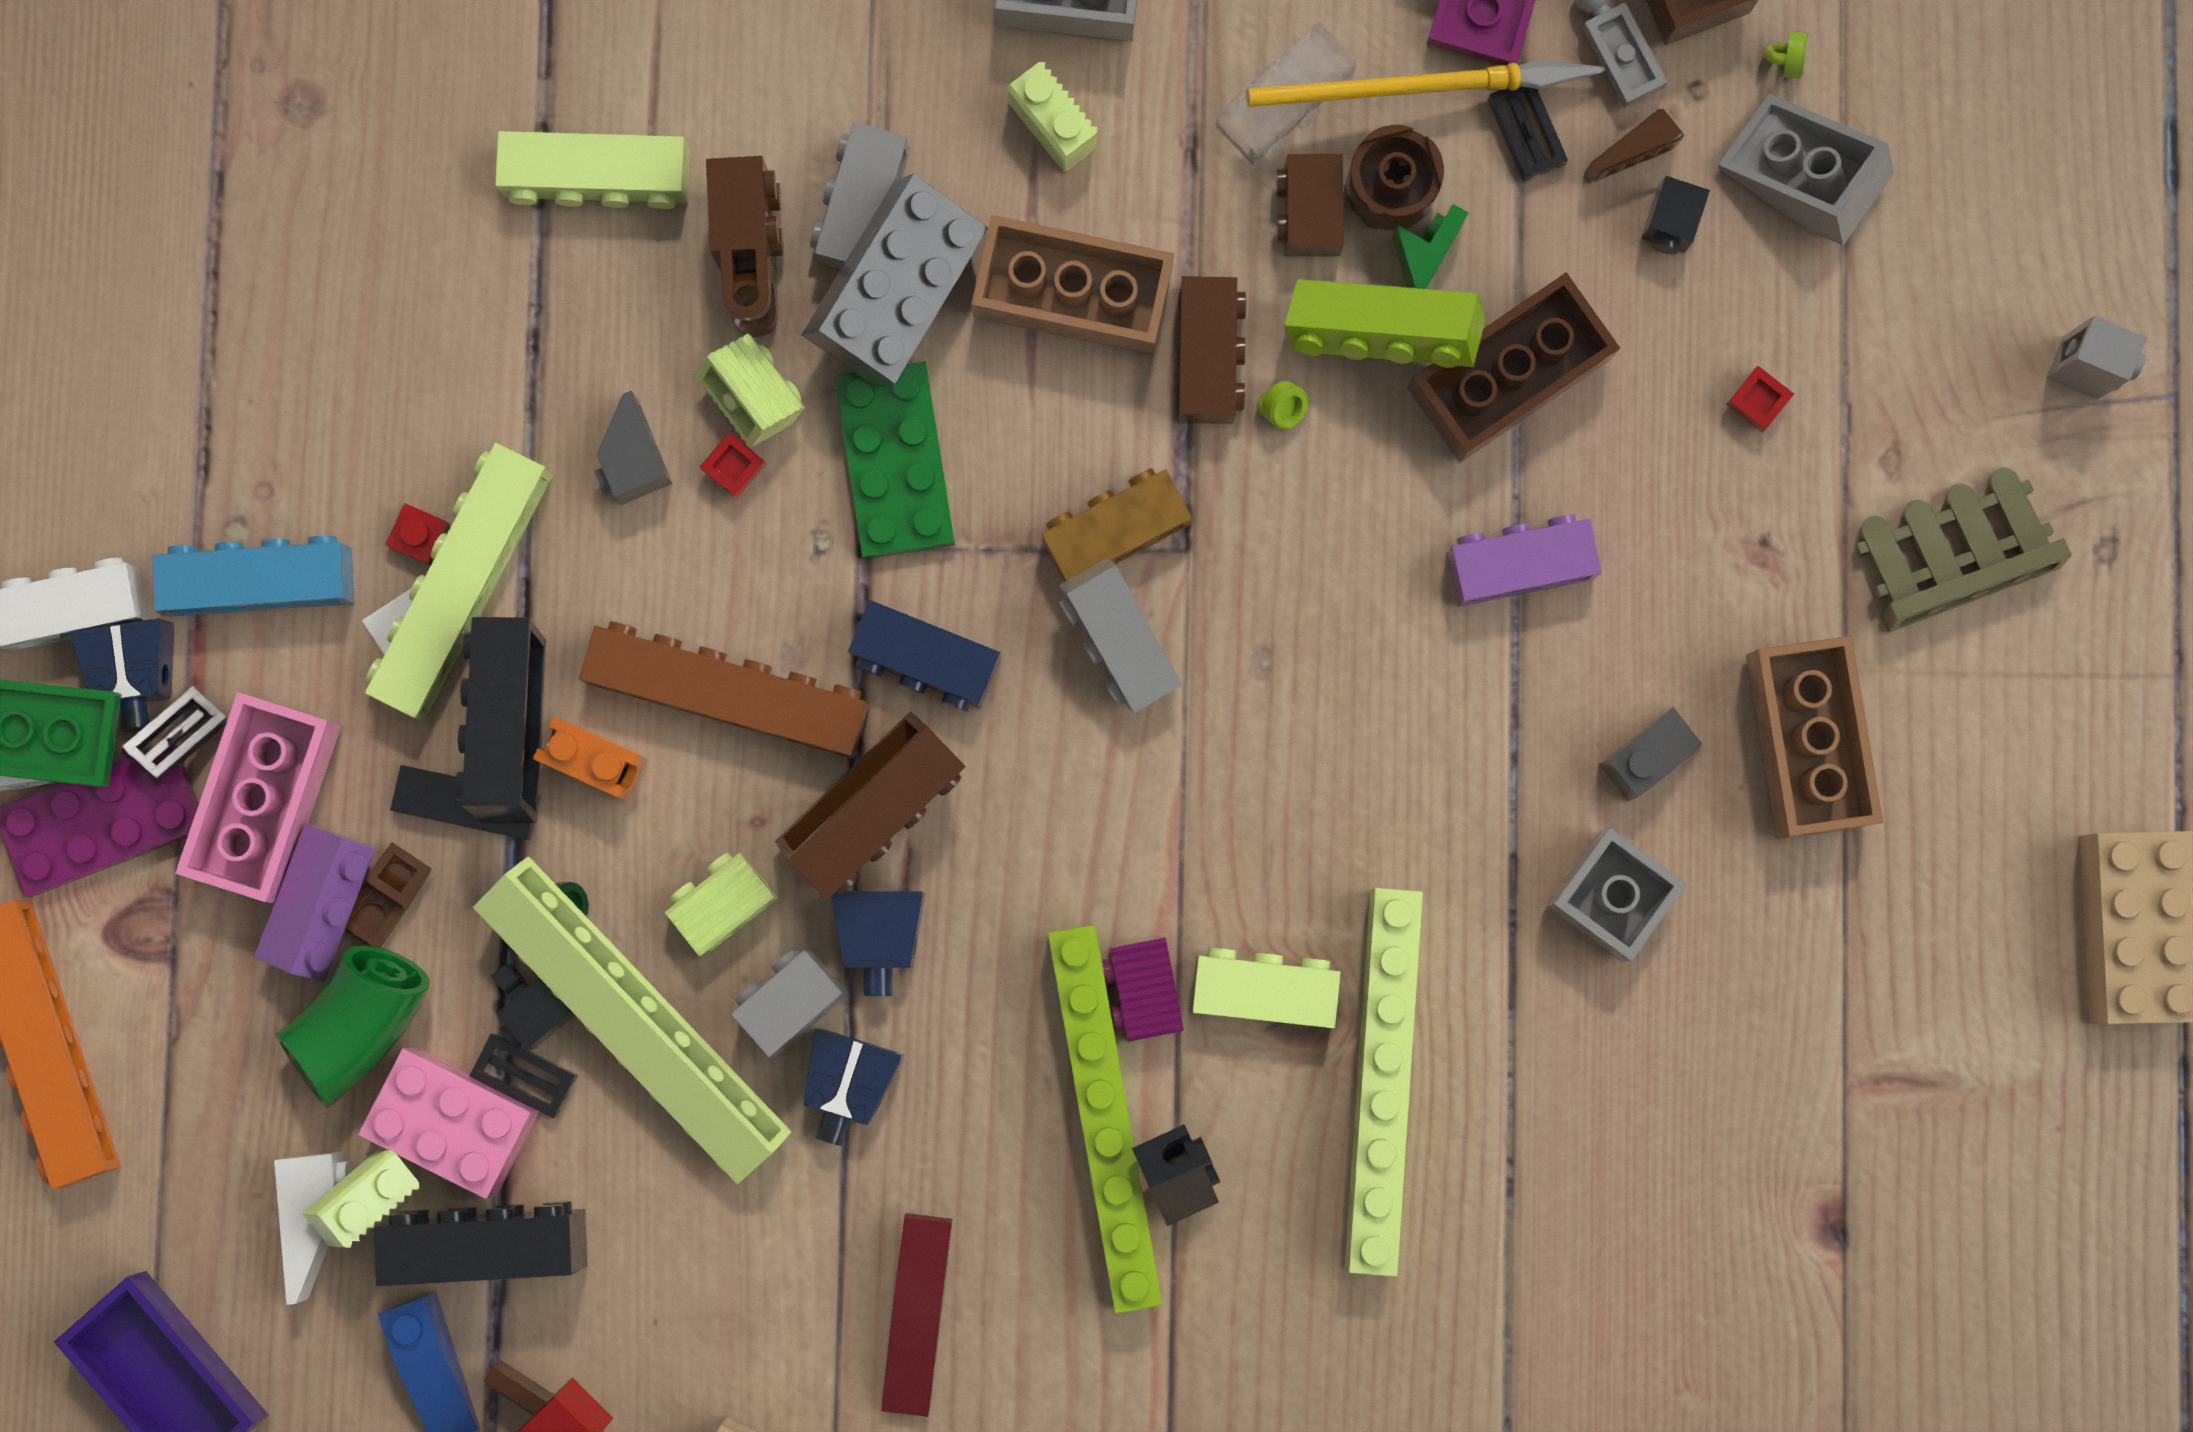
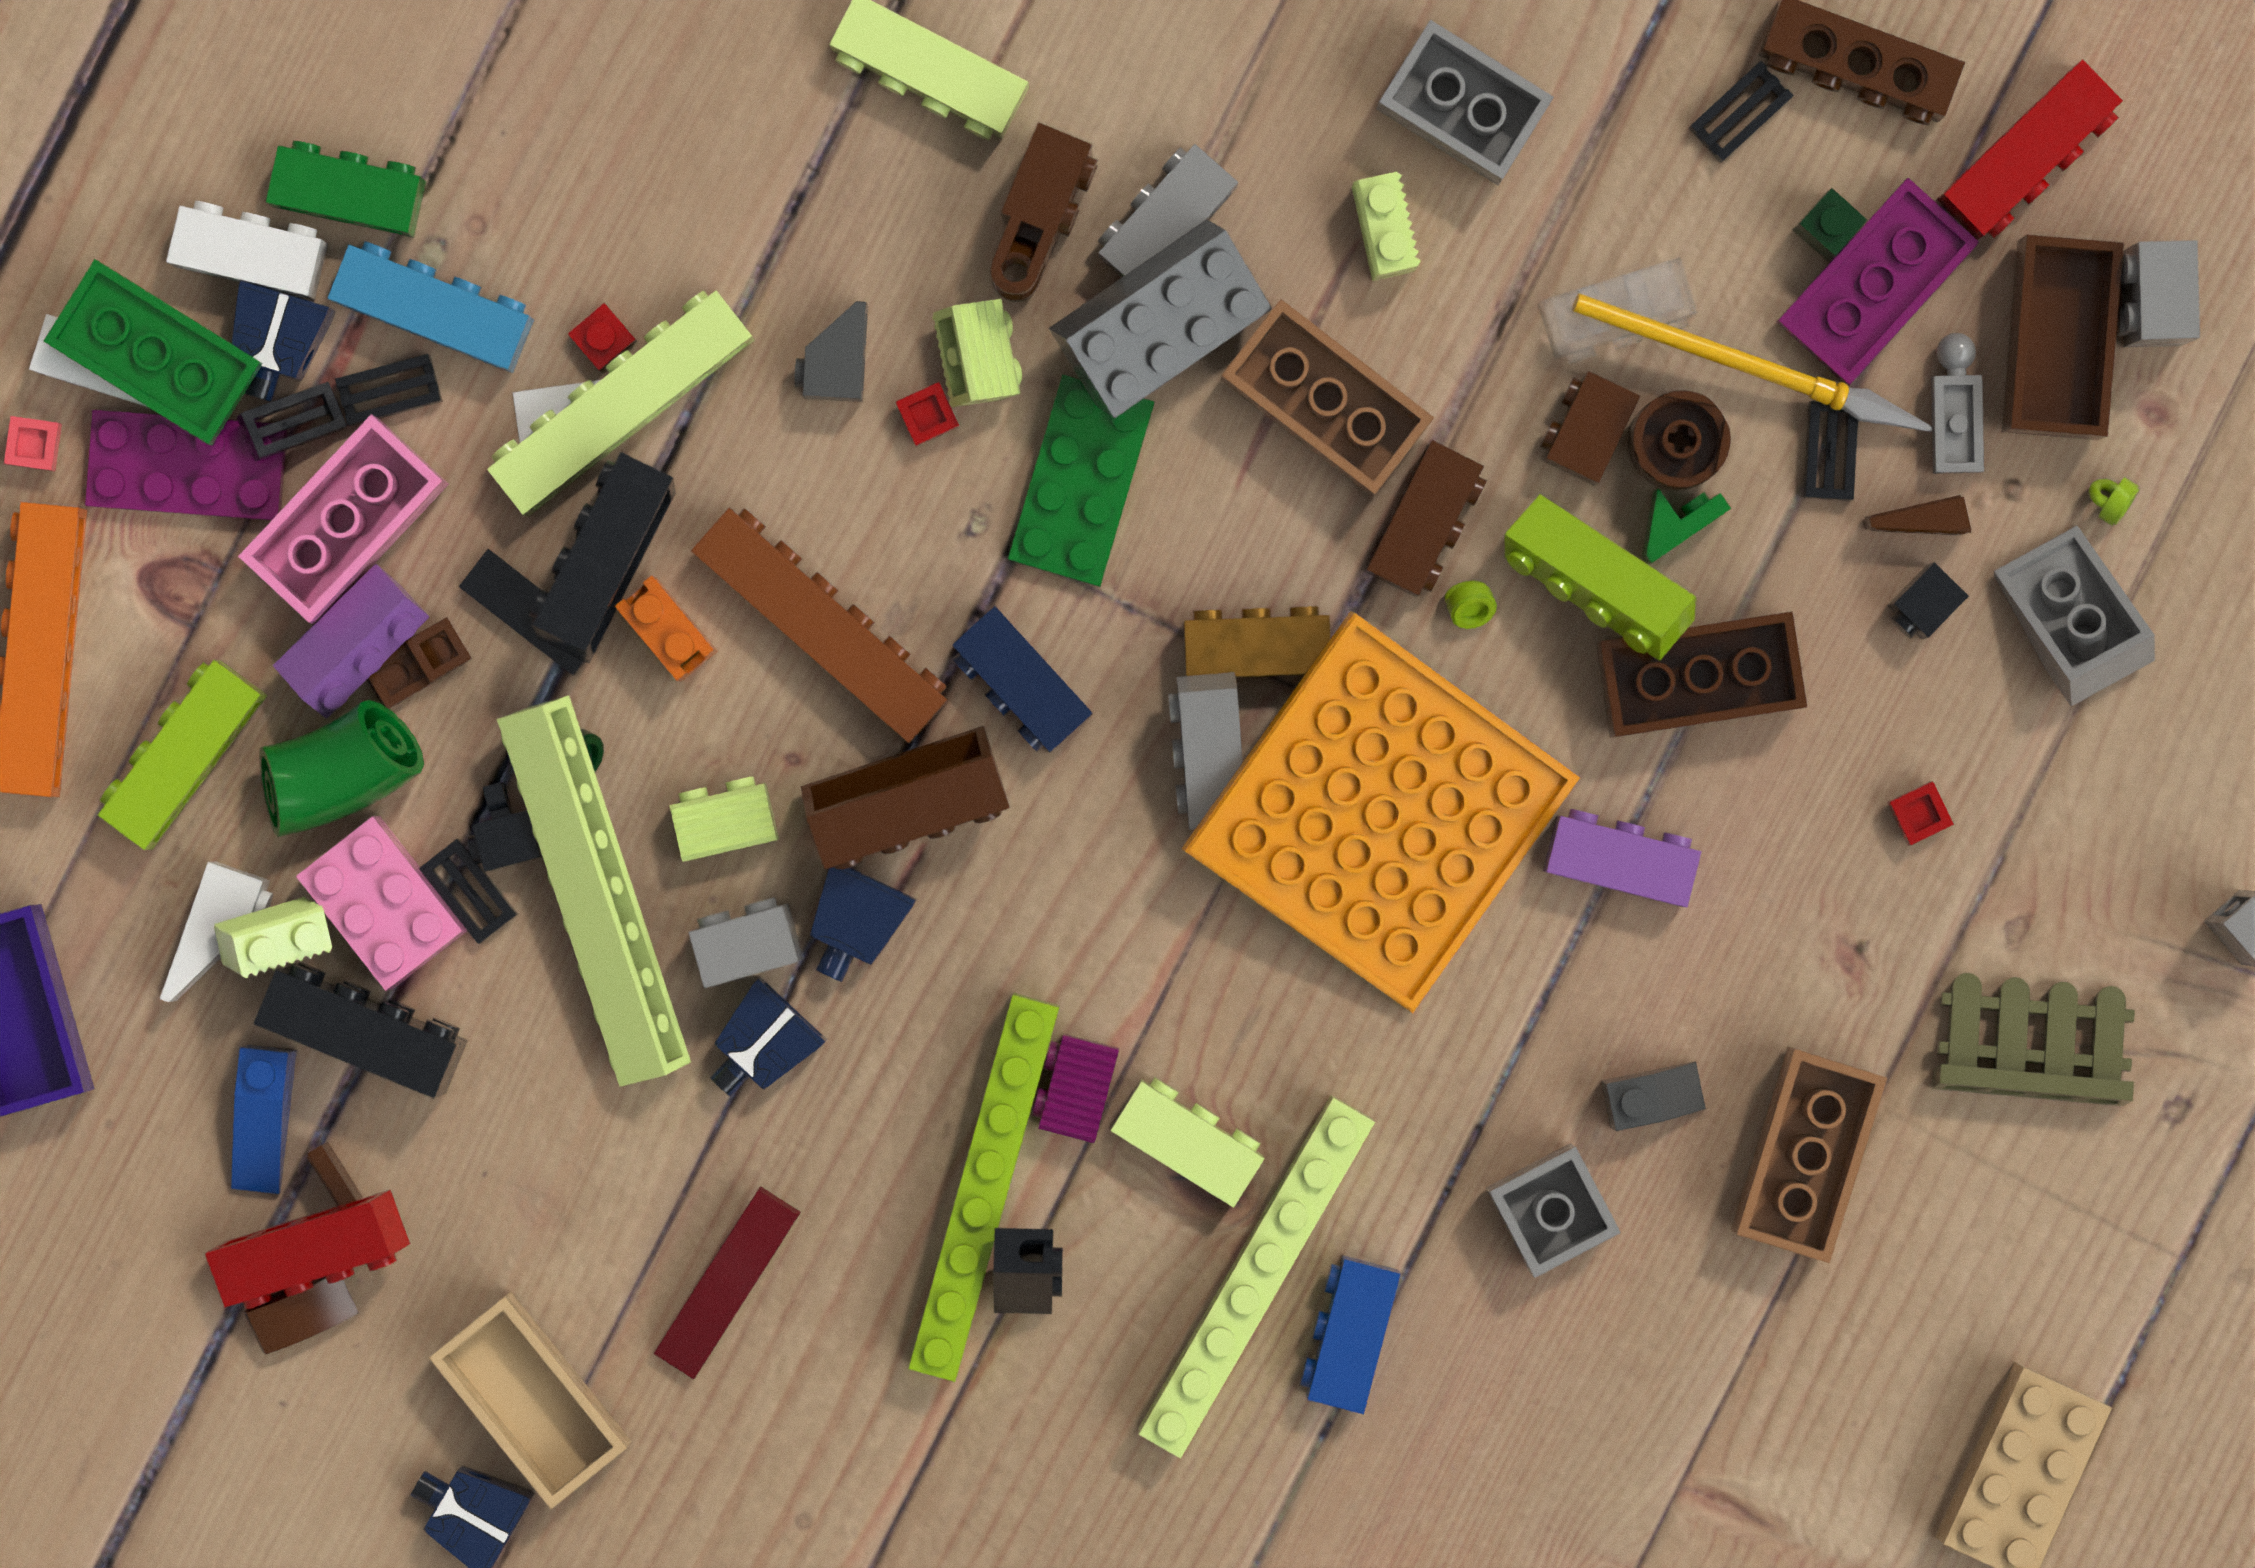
camera: 25 degrees right, 5 degrees up
(131, 511) = (346, 189): none -> green brick
(207, 1076) = (181, 754): none -> lime brick
(252, 643) = (349, 400): none -> black tile
(1293, 618) = (1381, 812): none -> light orange tile
(1491, 1092) = (1350, 1334): none -> blue brick

